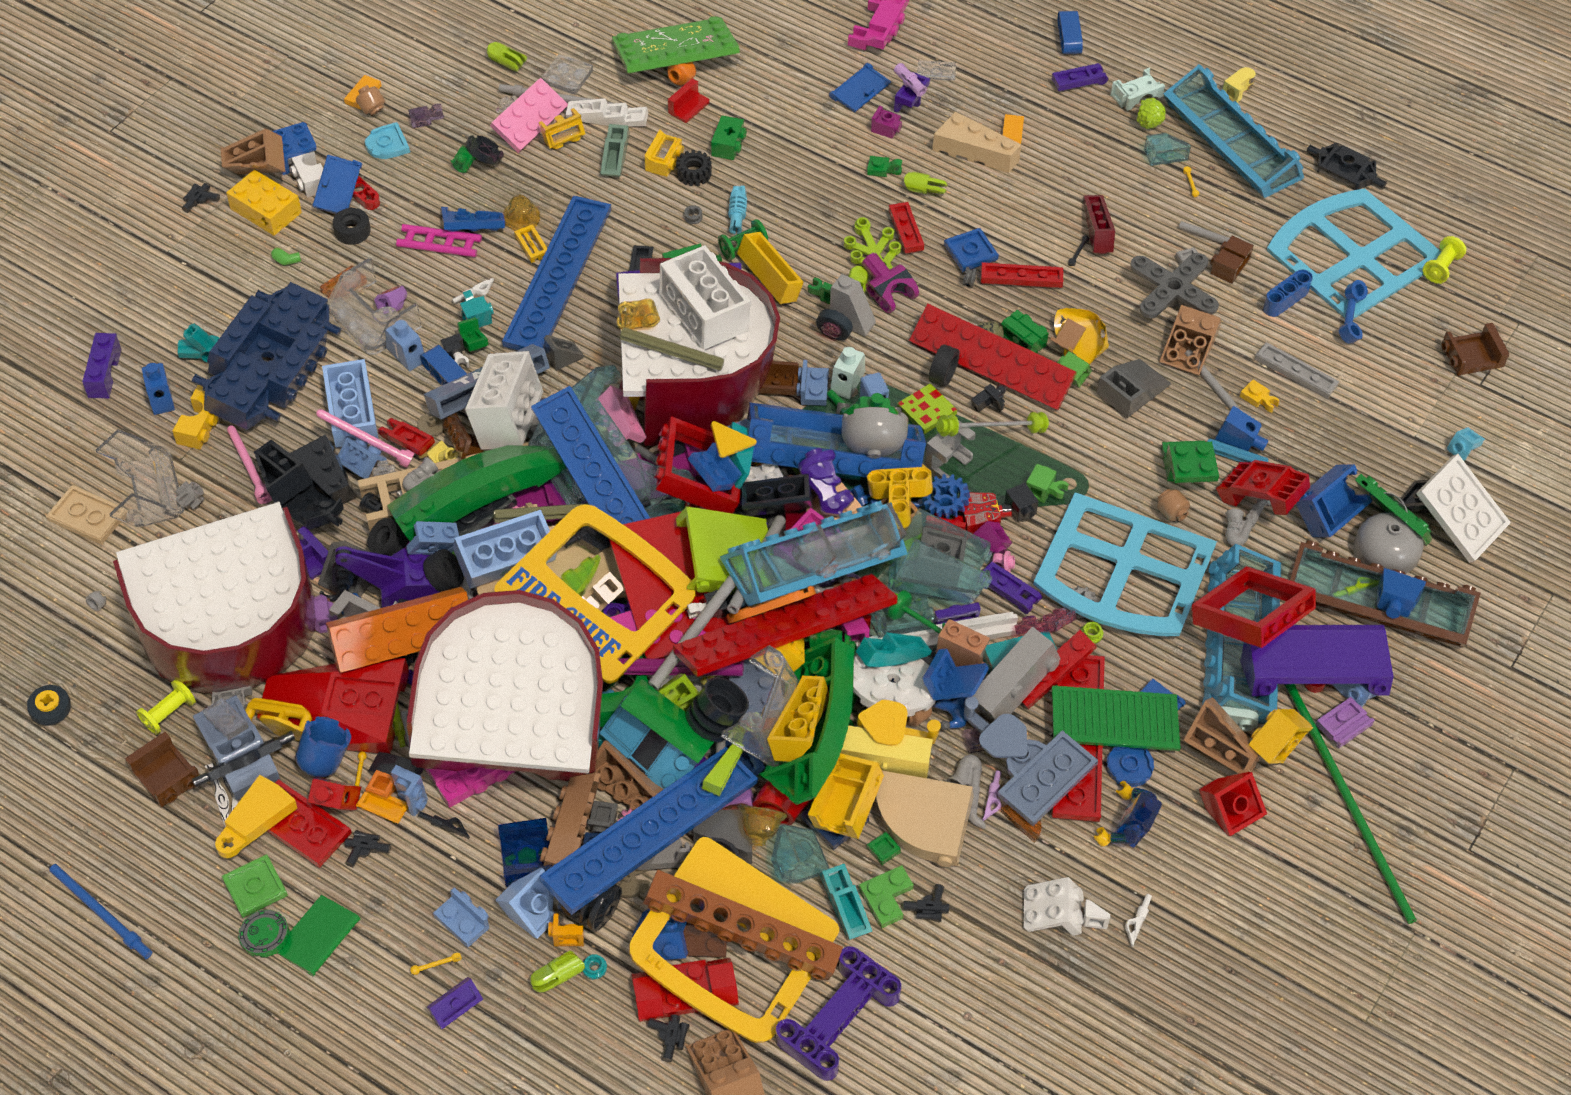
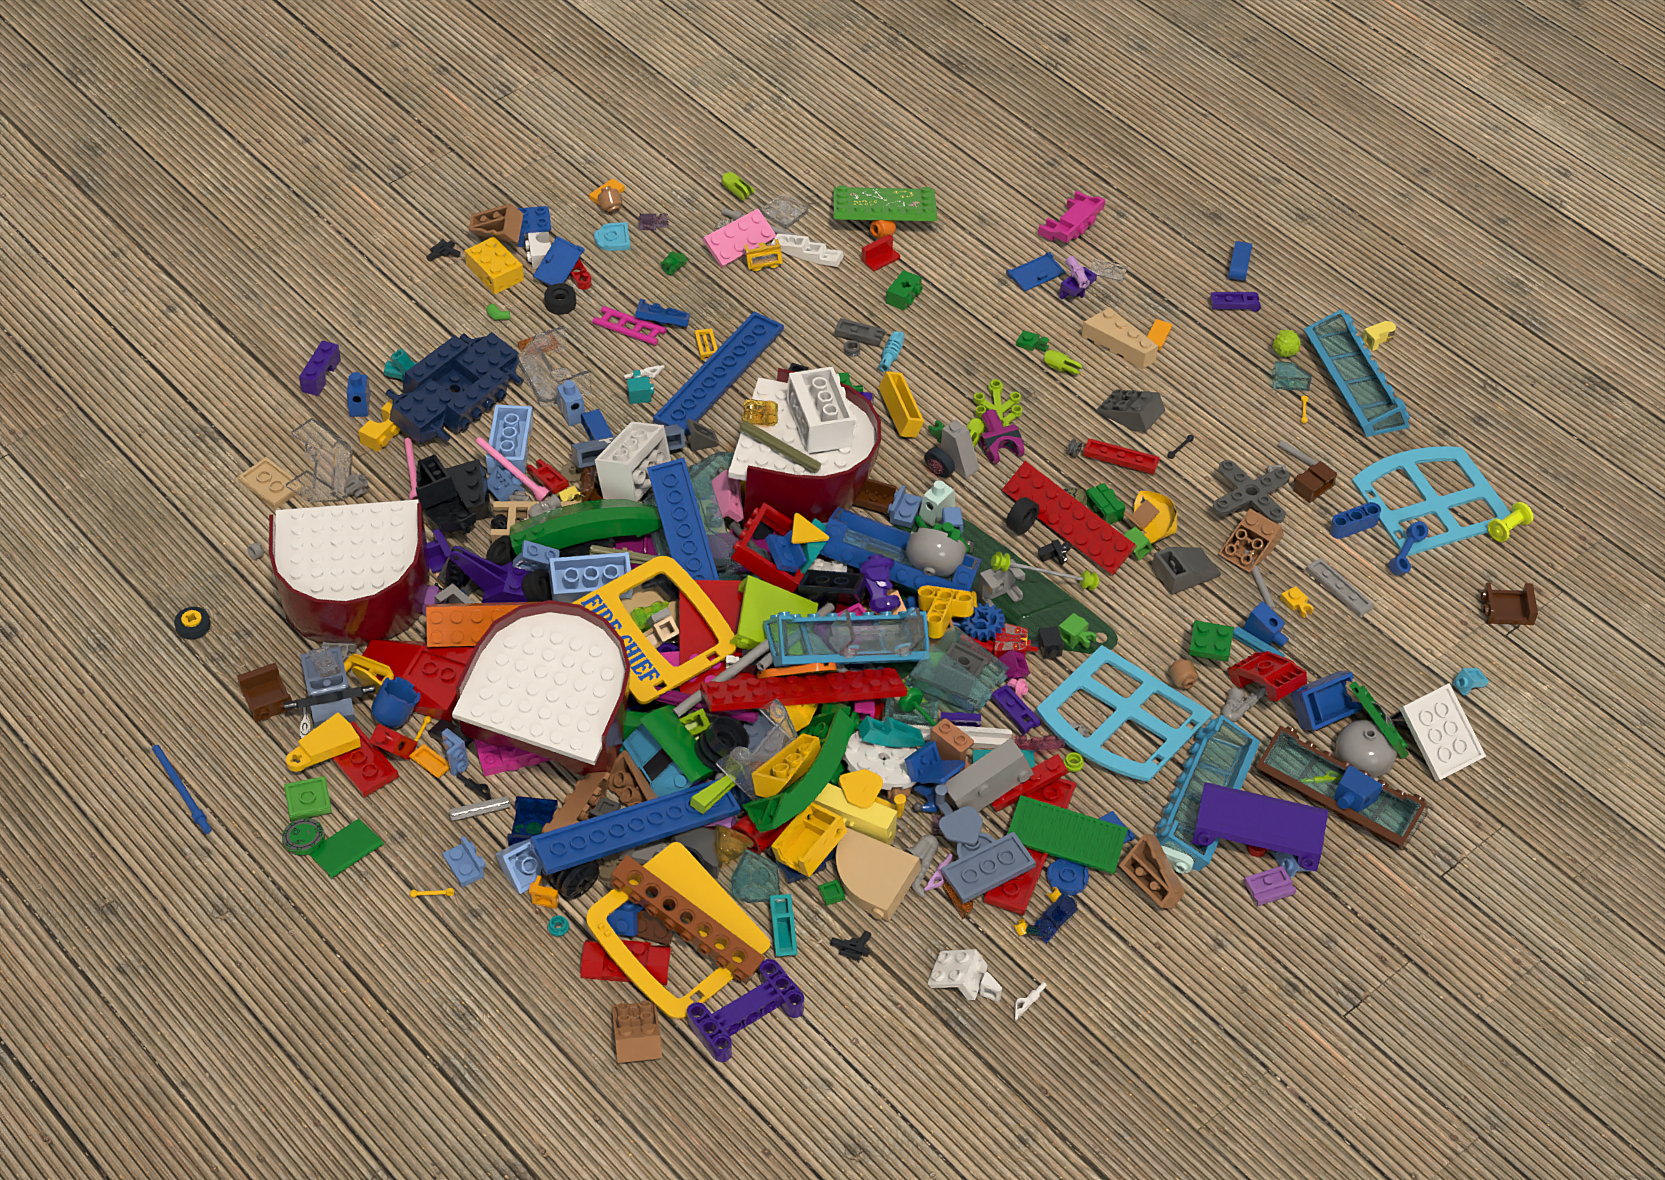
camera: 15 degrees right, 5 degrees down
(166, 706) = (283, 644): neon yellow hose -> none
(363, 845) = (403, 788): black piece -> none
(381, 784) = (433, 744): orange slope -> none
(392, 298) = (574, 364): medium lavender rock -> none
(454, 346) = (611, 414): black piece -> none
(454, 1003) = (435, 925): dark purple plate -> none
(458, 848) = (480, 808): none -> light grey axle
(472, 336) = (629, 406): green bracket -> none
(484, 149) = (691, 259): black tile -> none
(521, 213) = (705, 317): clear yellow hat -> none
(556, 972) = (526, 922): lime arm -> none
(596, 577) = (658, 616): none -> light grey tile
(615, 150) = (803, 281): sand green slope -> none
(663, 154) = (843, 292): yellow window -> none
(670, 1034) = (603, 993): black piece -> none
(693, 160) = (866, 302): black tyre -> none
(696, 194) = (859, 332): none -> dark grey hinge
(725, 243) = (869, 376): green hose -> none
(880, 895) = (817, 925): bright green plate -> none
(885, 123) = (1046, 305): magenta brick -> none
(906, 227) = (1033, 396): red plate -> none
(926, 407) = (994, 542): lime tile -> none
(971, 249) = (1084, 425): blue plate -> none
(1016, 219) = (1133, 408): none -> dark grey slope
(1099, 224) = (1205, 427): dark red slope -> none
(1132, 91) = (1274, 322): light aqua piece -> none
(1233, 801) = (1146, 926): red slope -> none
(1279, 735) = (1203, 879): yellow hinge -> none
(1298, 597) = (1254, 772): red window -> none
(1352, 806) = (1251, 955): green piece -> none
(1359, 172) = (1462, 432): black plate -> none

